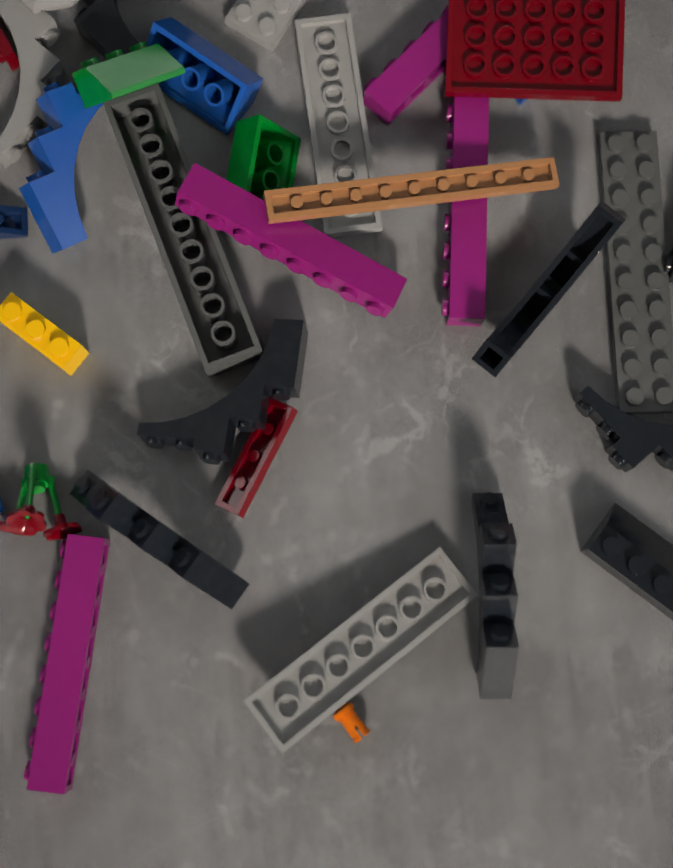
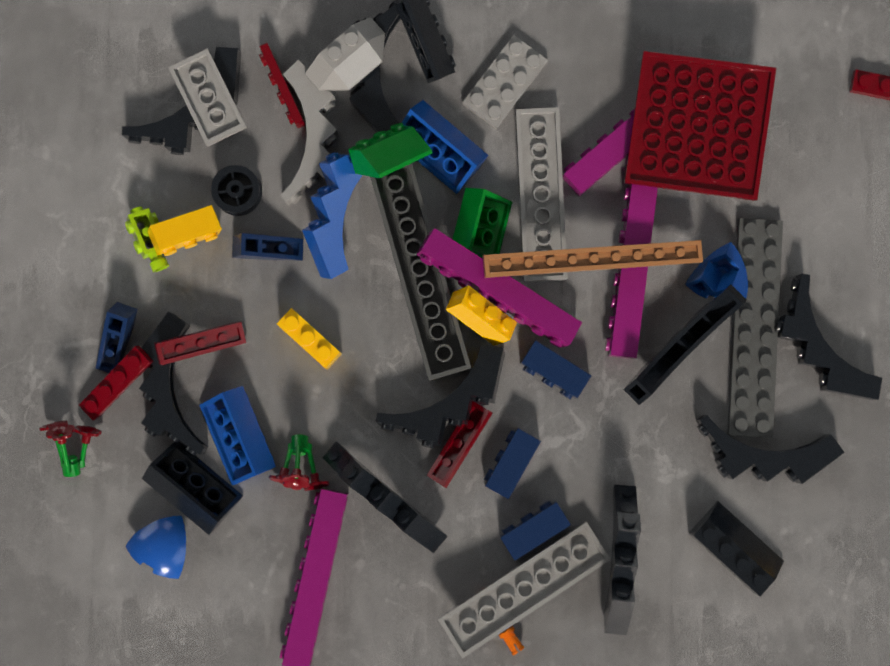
camera: 10 degrees right, 5 degrees up
(269, 279) = (481, 315): none -> yellow brick
(329, 475) = (511, 462): none -> dark blue brick
(369, 563) = (534, 529): none -> dark blue brick
(376, 347) = (555, 370): none -> dark blue brick
(578, 200) = (718, 272): none -> blue brick

